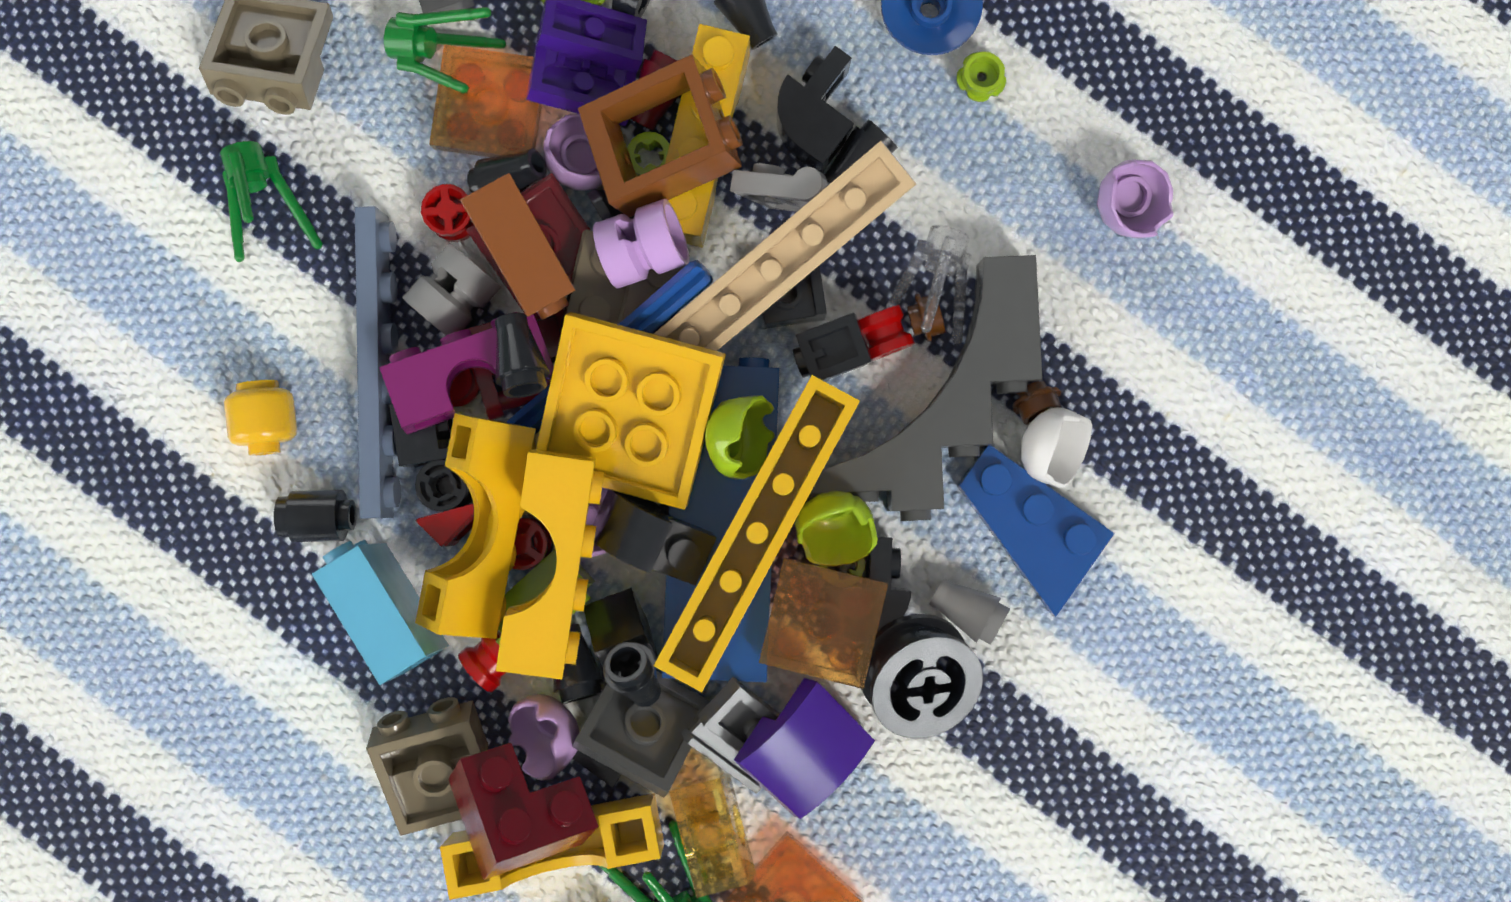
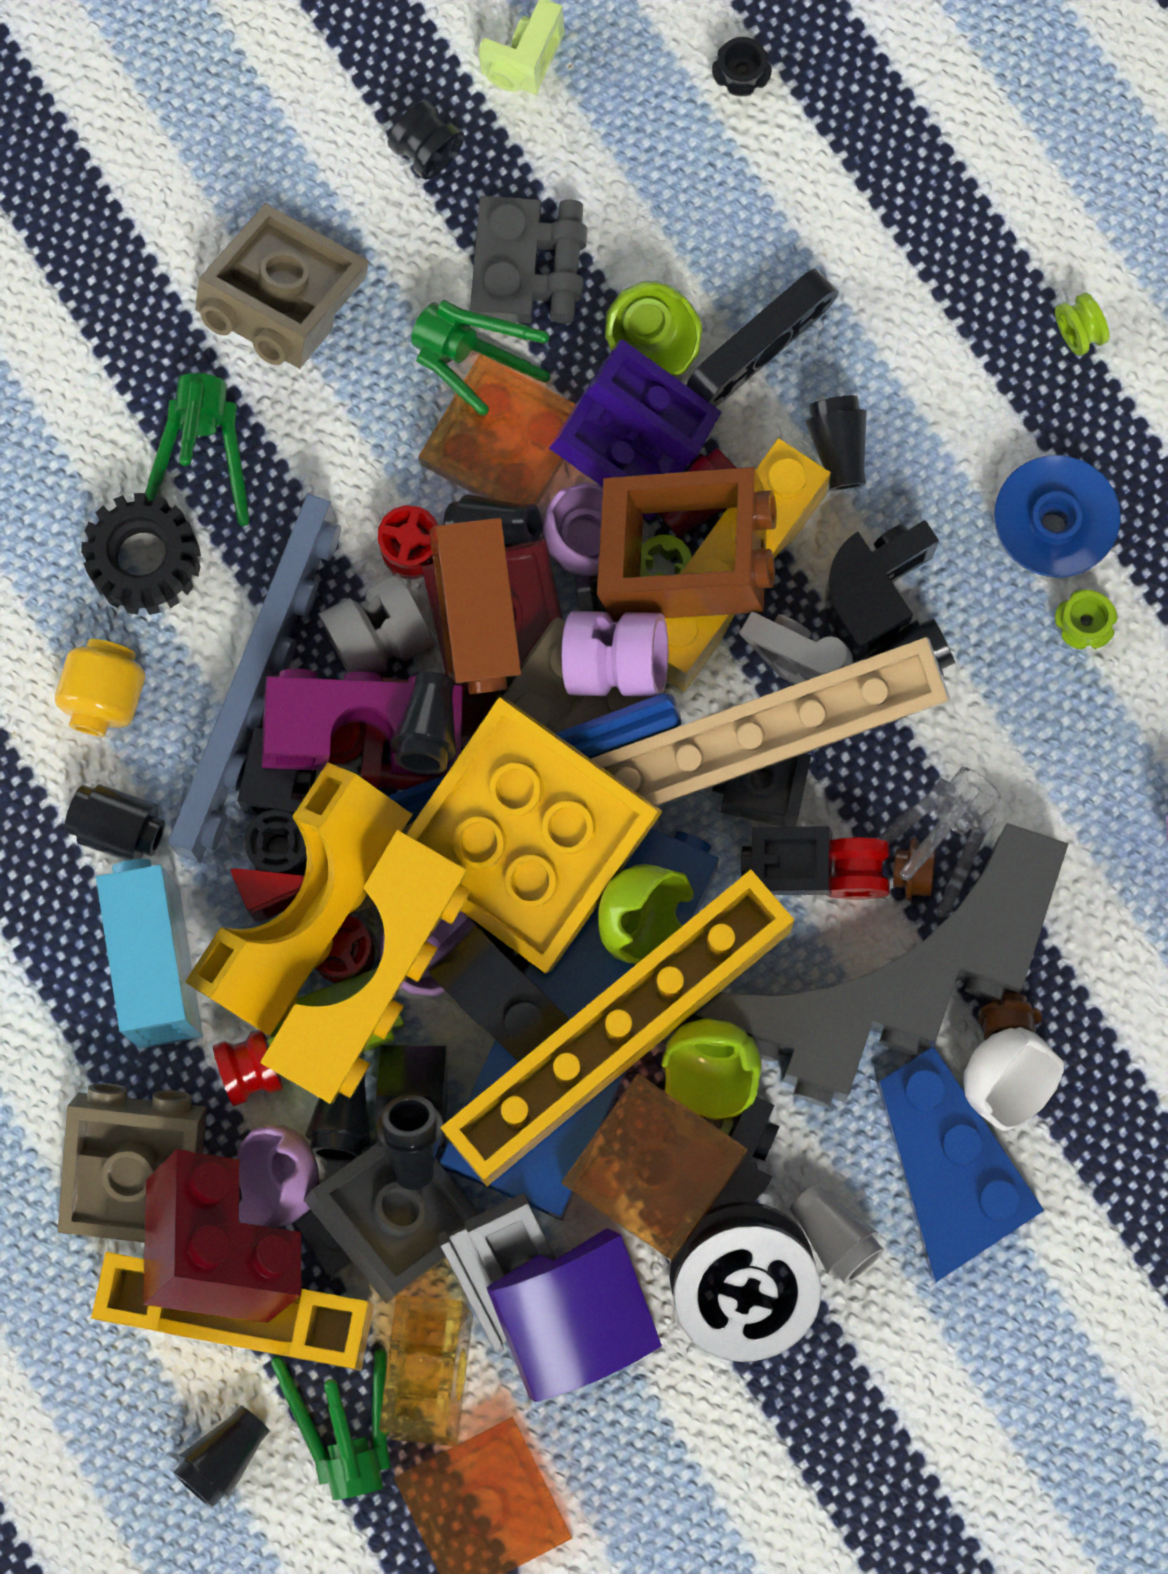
camera: 25 degrees right, 10 degrees down
(224, 284) = (130, 519): none -> black tyre

